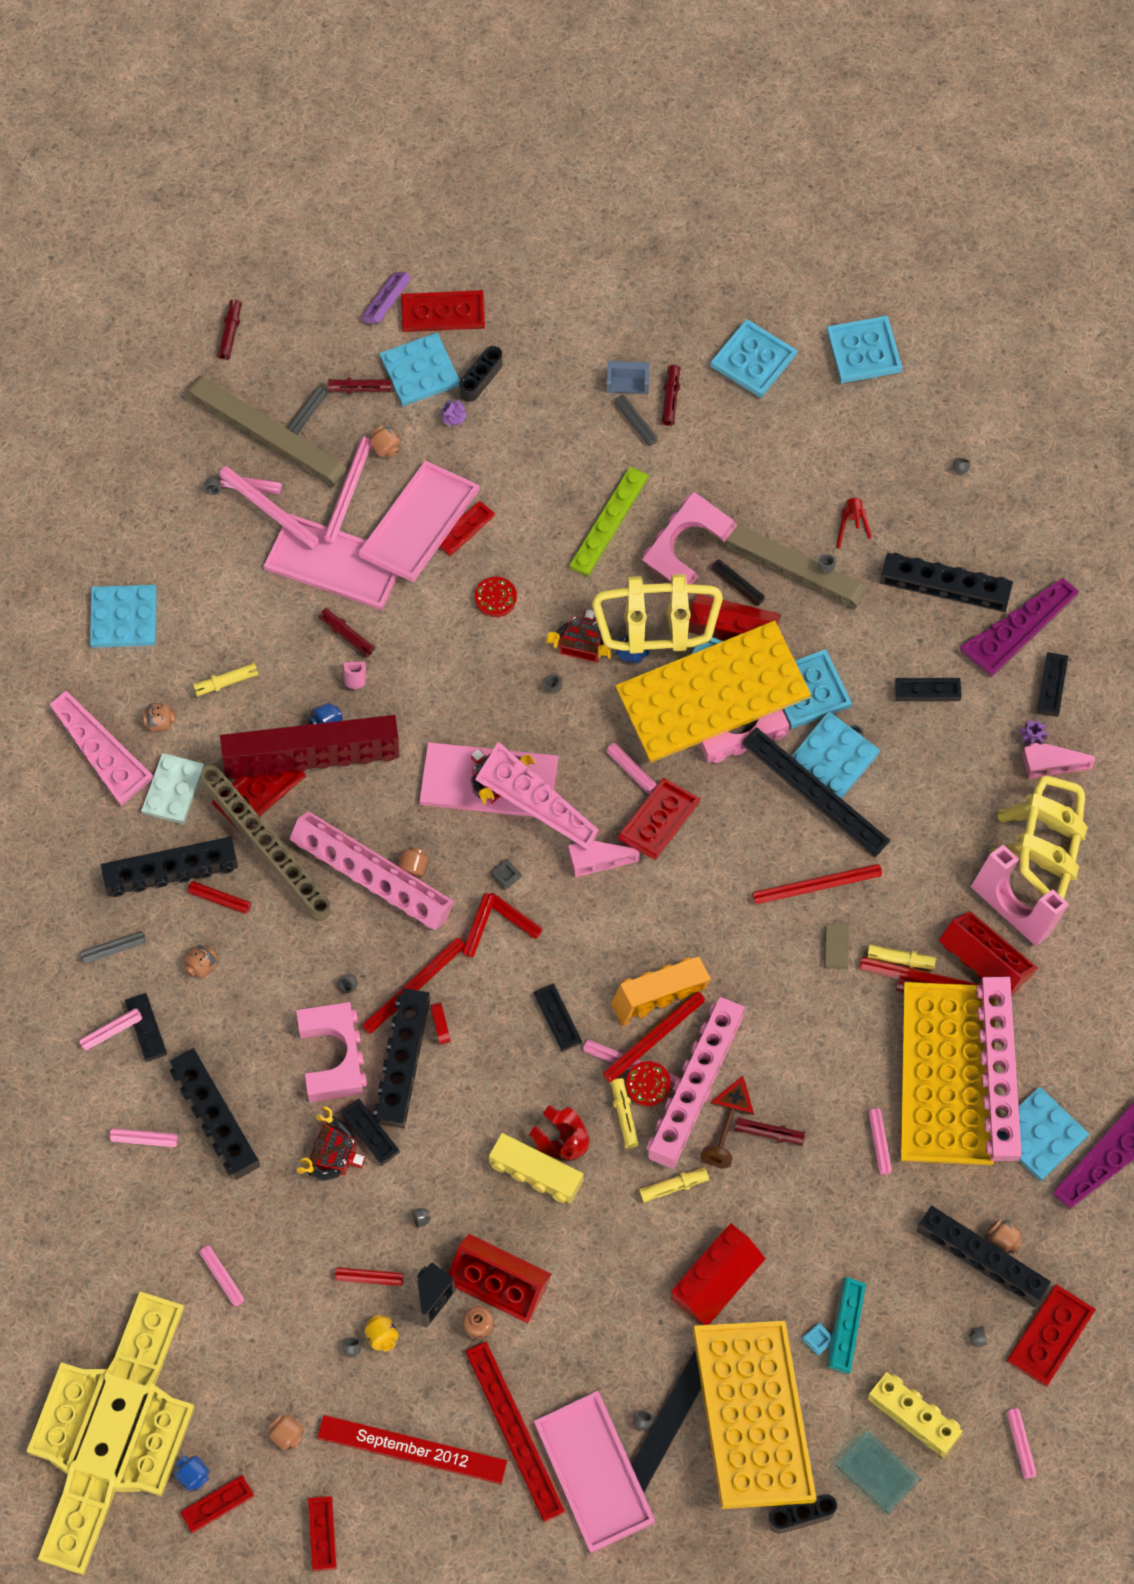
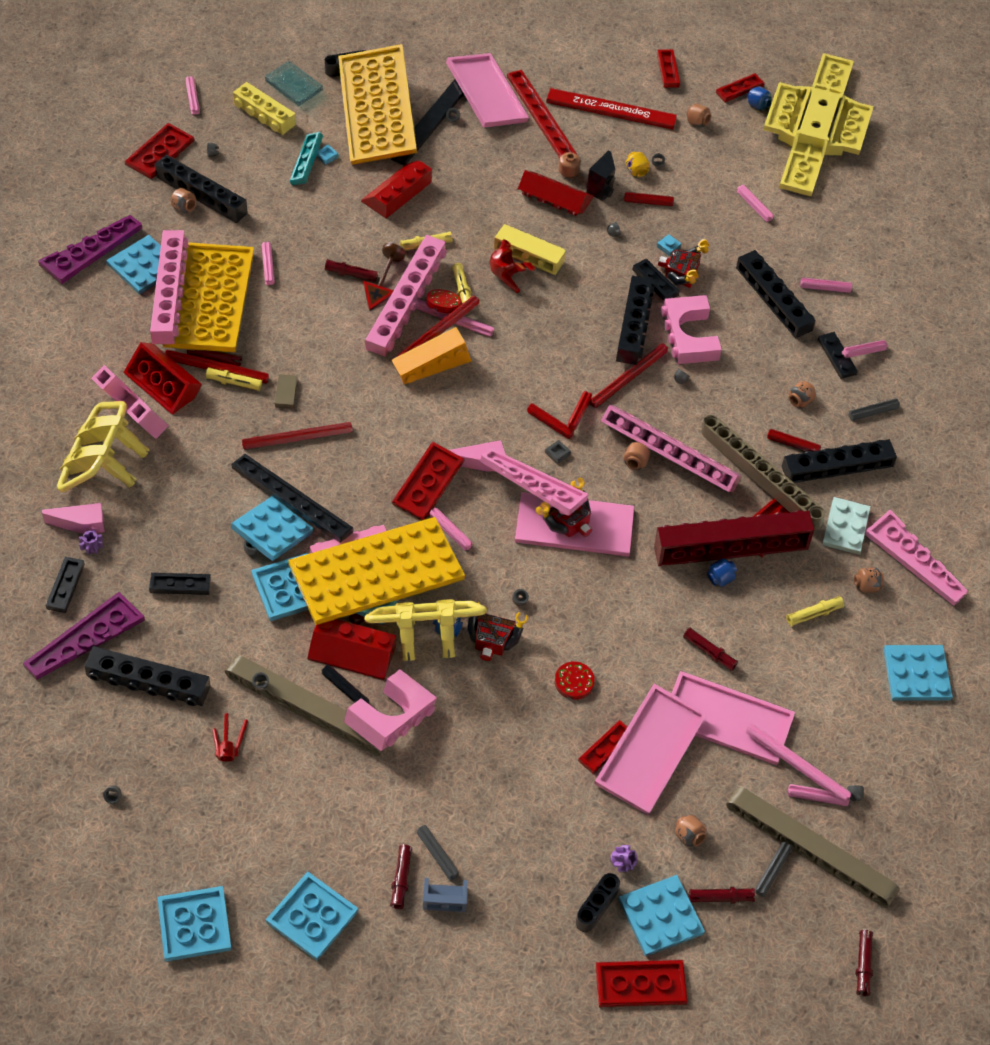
camera: 175 degrees right, 10 degrees down
(347, 490) = (723, 782): bright pink axle -> none
(347, 1197) = (668, 245): none -> medium azure plate
(356, 679) = (700, 608): bright pink plate -> none
(386, 297) = (703, 995): medium lavender plate -> none
(440, 1023) = (607, 346): red beam -> none
(557, 1017) = (514, 351): black tile -> none
(609, 521) = (466, 750): lime plate -> none

